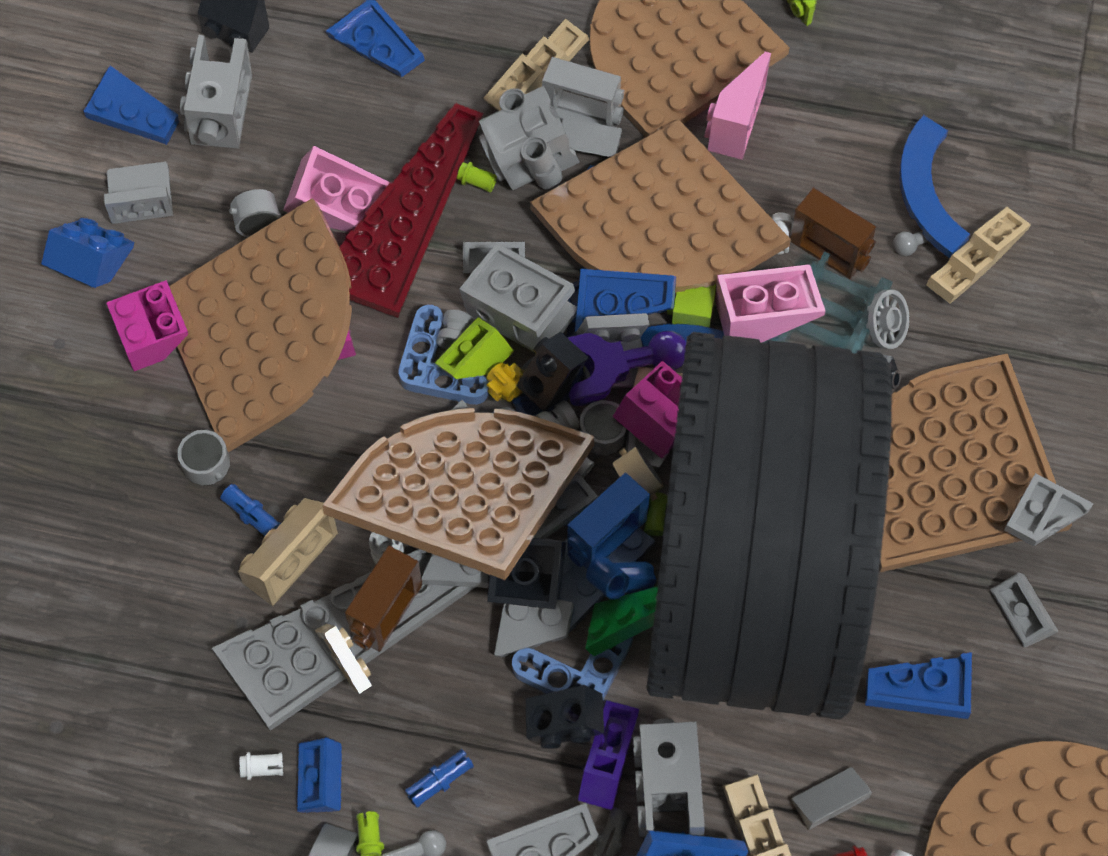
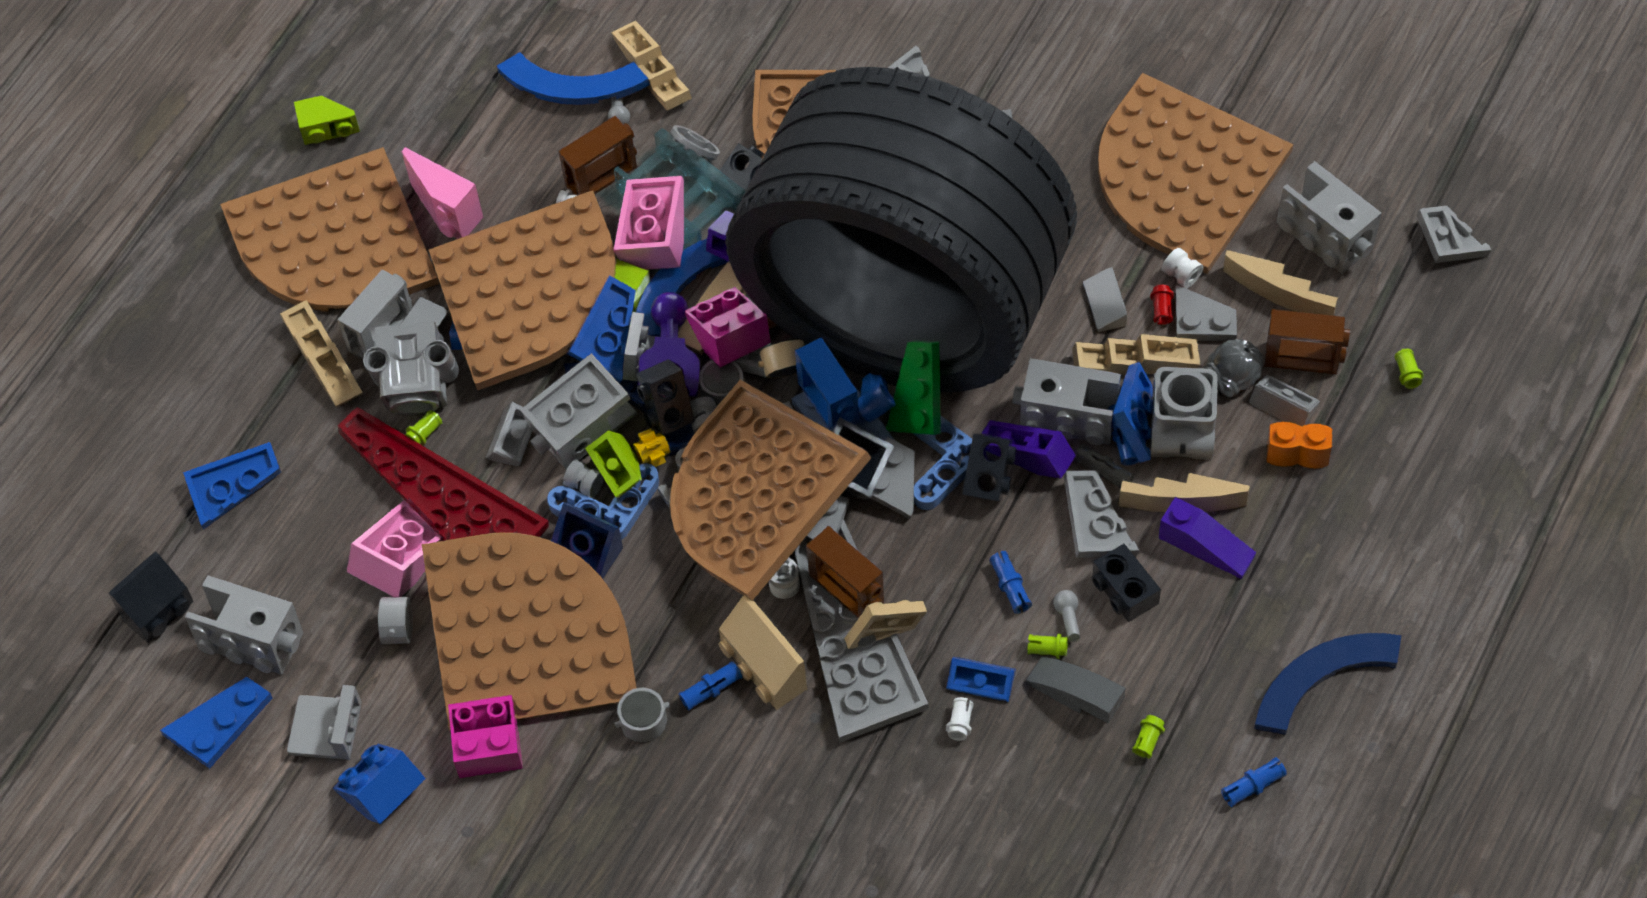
camera: 70 degrees left, 5 degrees down
(380, 353) = (588, 537): none -> dark blue slope

